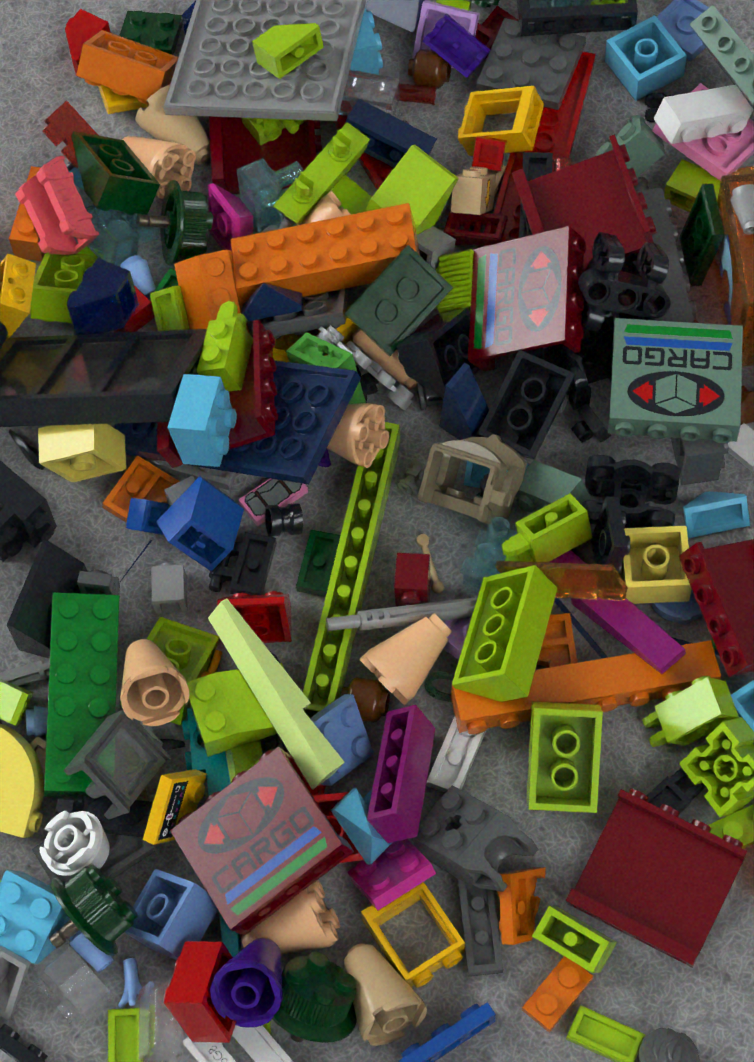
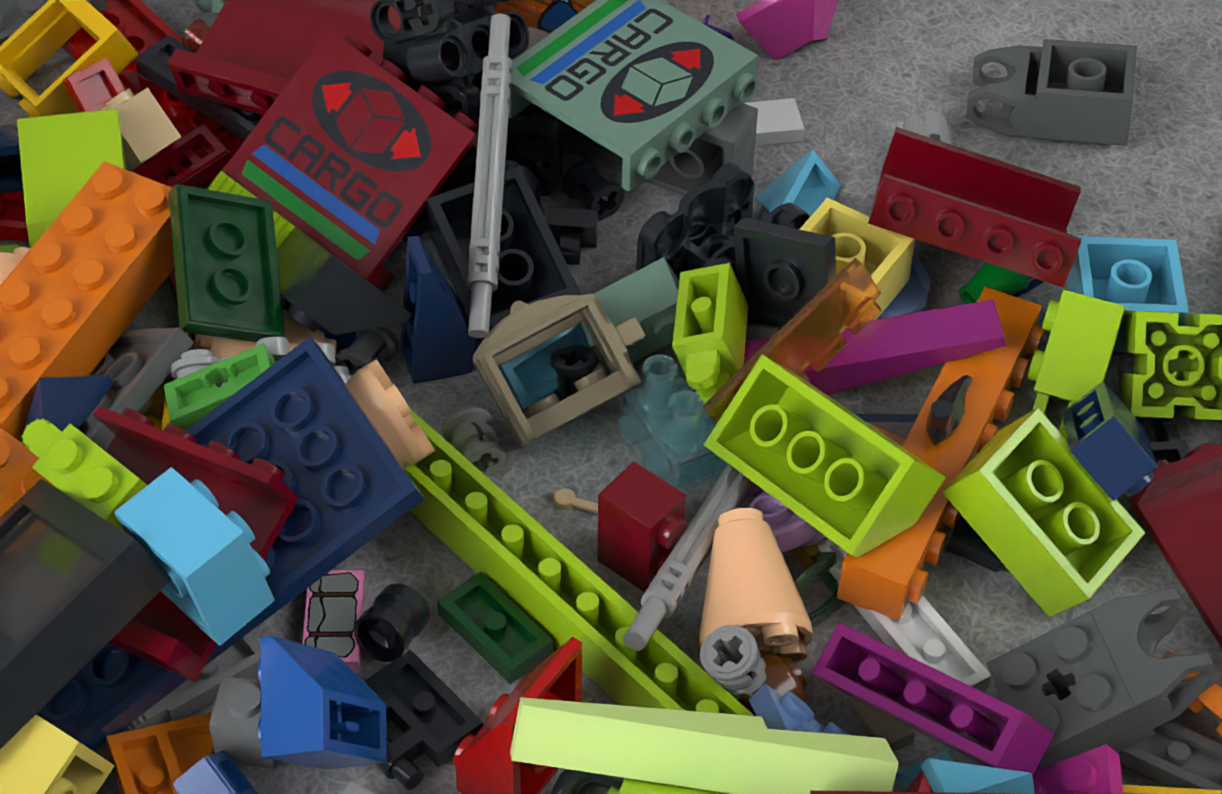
camera: 60 degrees left, 15 degrees down
(353, 673) = (739, 659): none -> light grey bush
(553, 363) = (489, 177): none -> light grey axle
(593, 672) = (947, 410): none -> black bar
(630, 760) = (1109, 442): none -> dark blue brick

